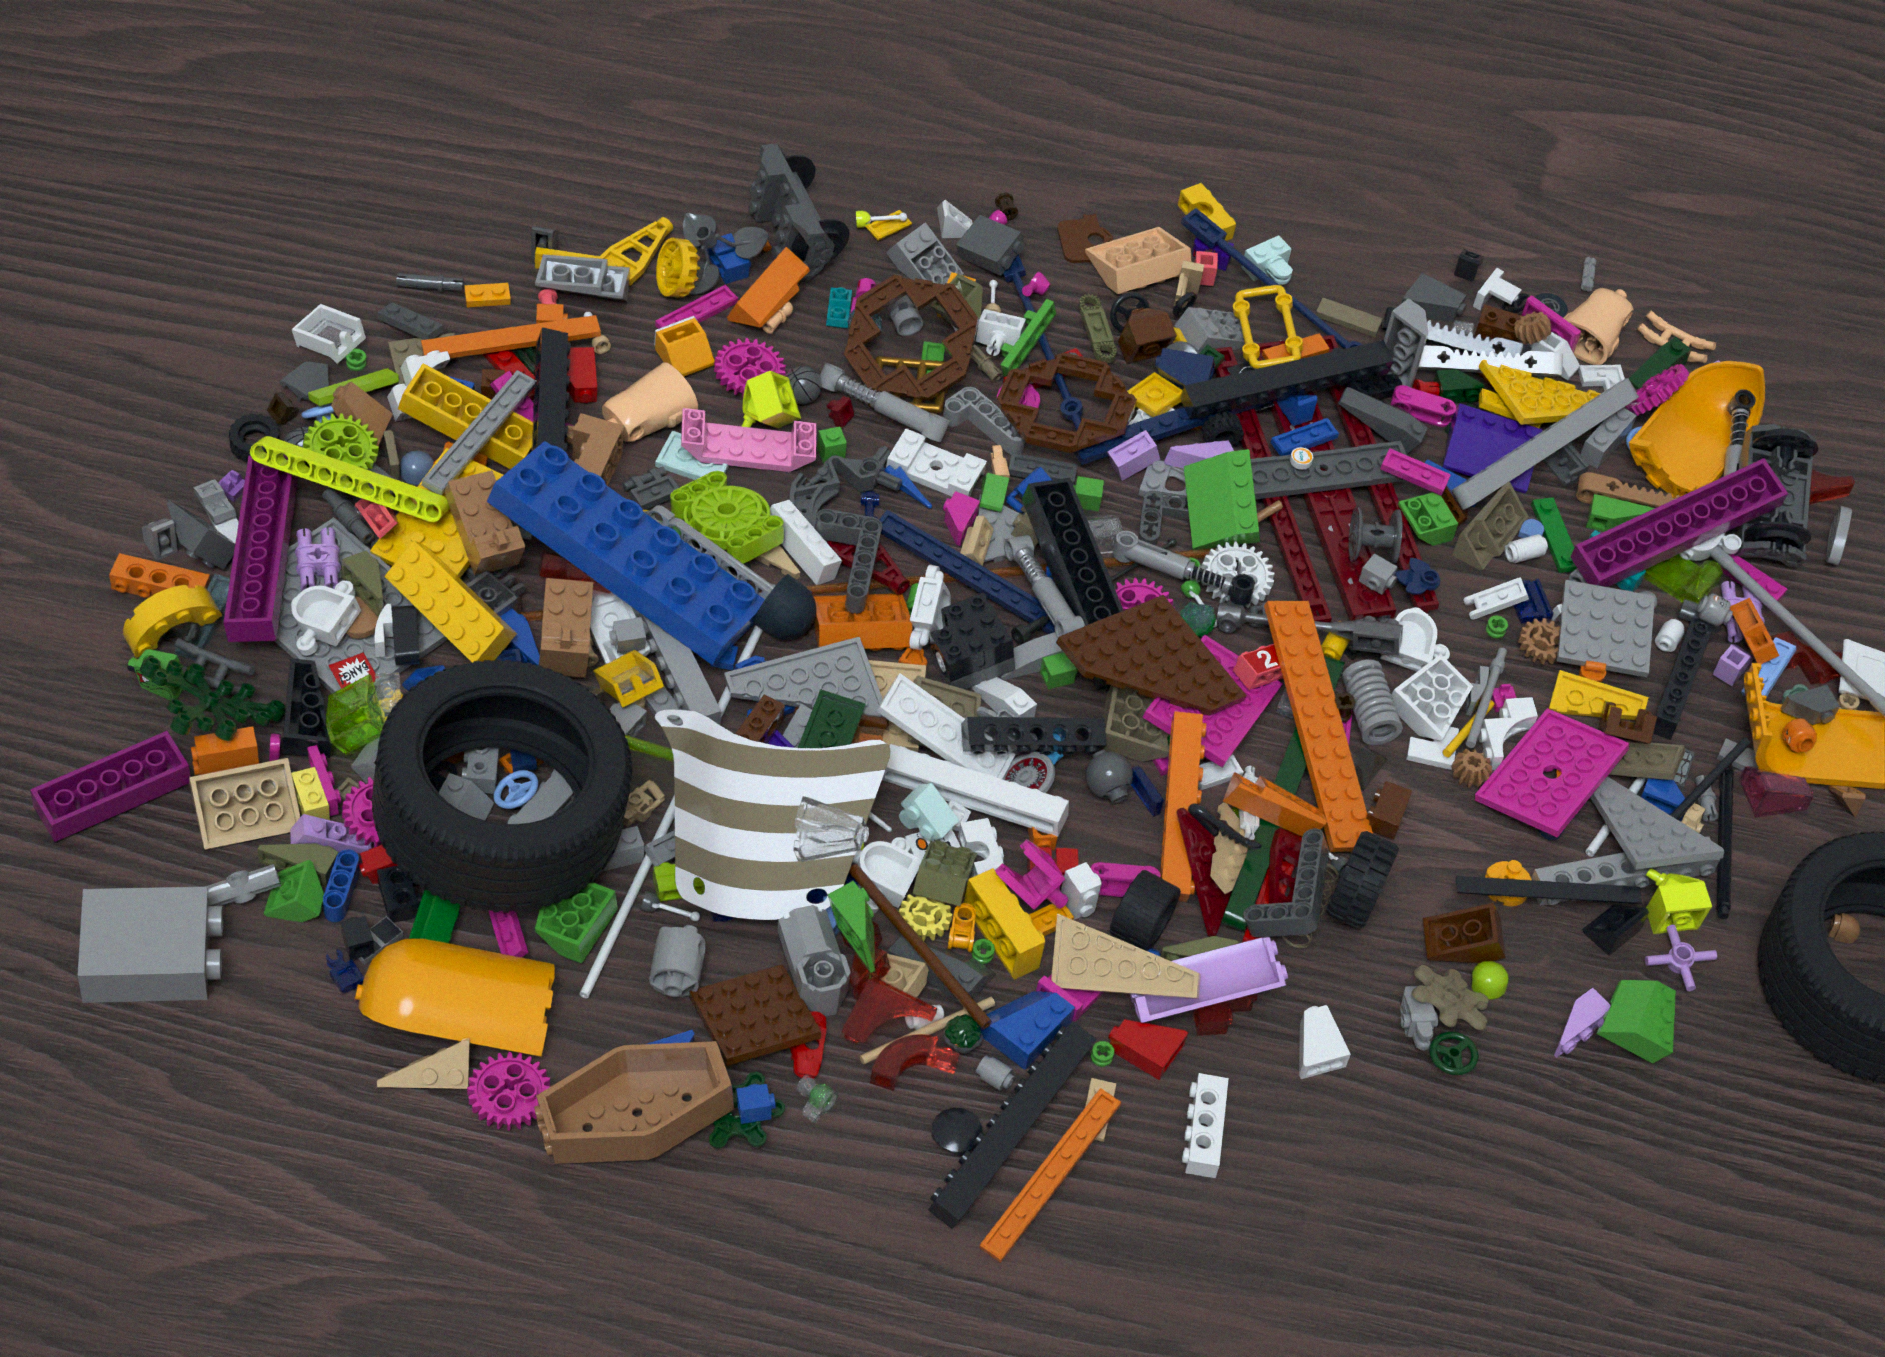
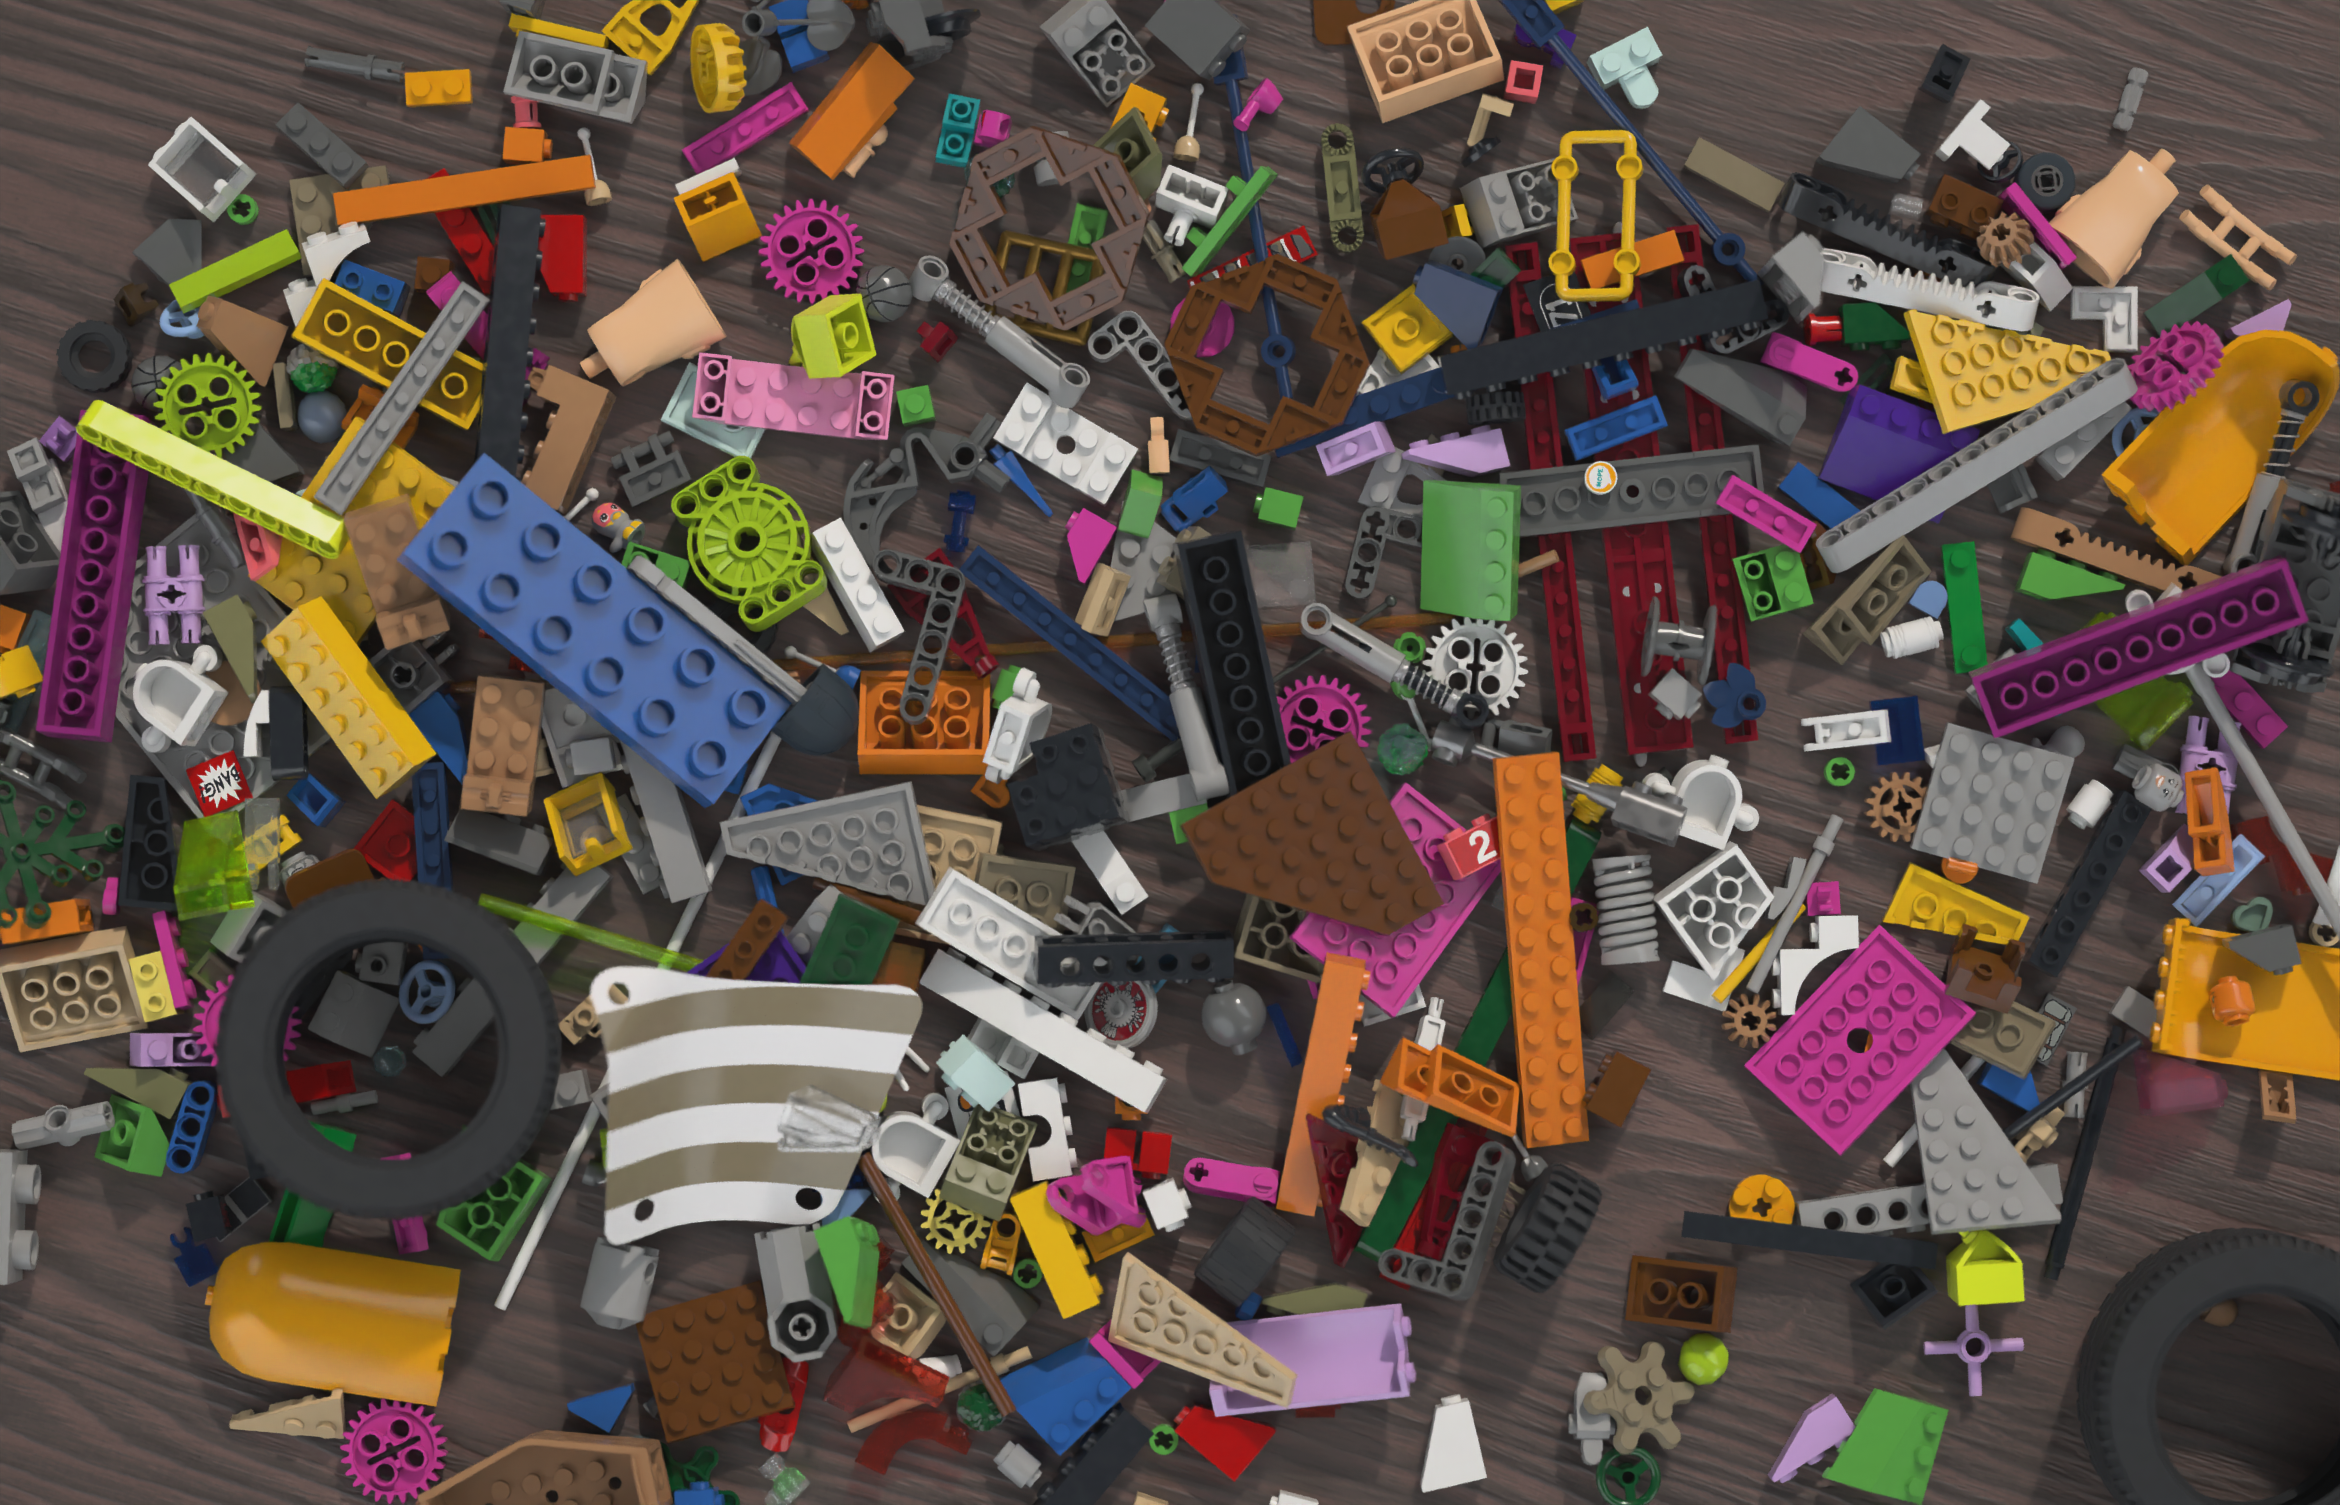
camera: 15 degrees right, 35 degrees up
(411, 434) = (311, 369): none -> green piece

